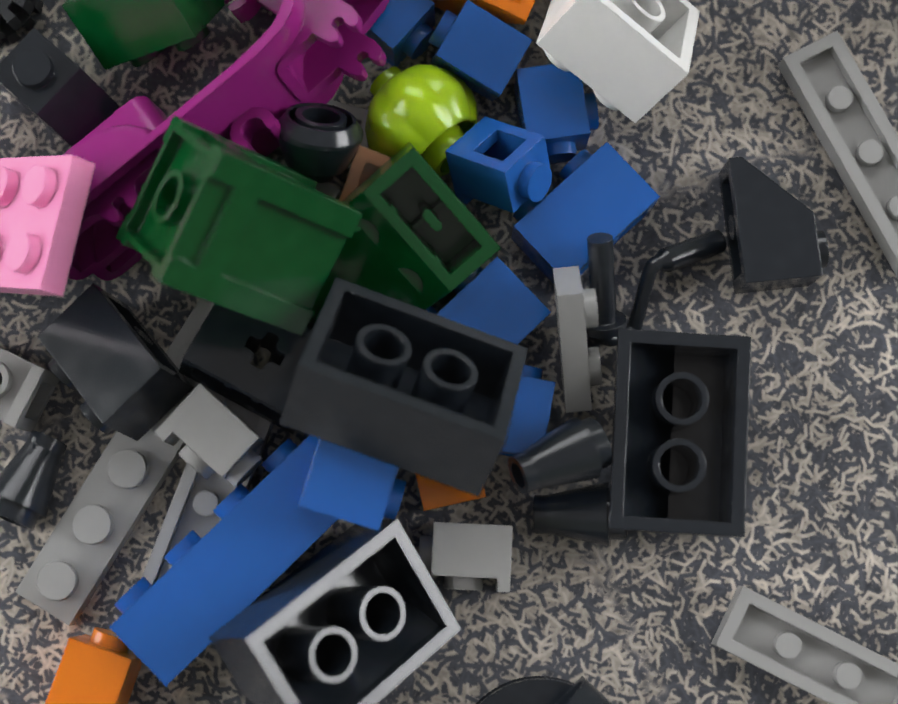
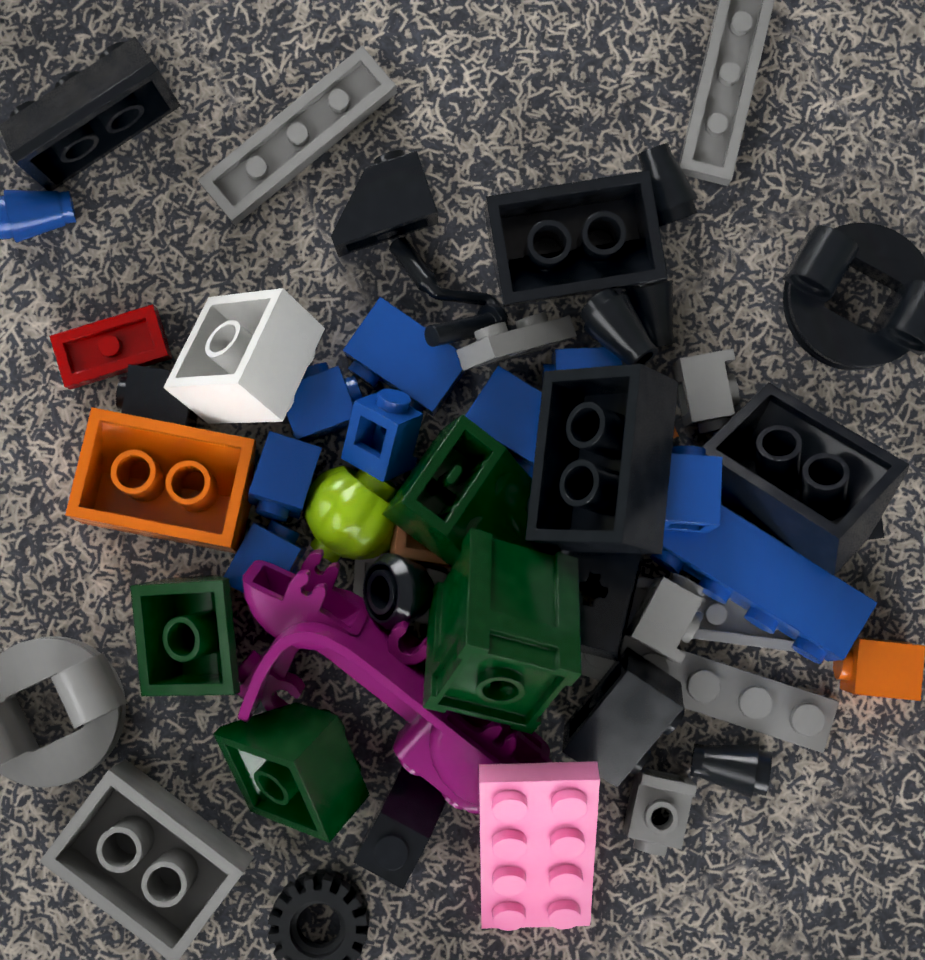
camera: 110 degrees left, 5 degrees up
(722, 564) = (670, 186): none -> black cone

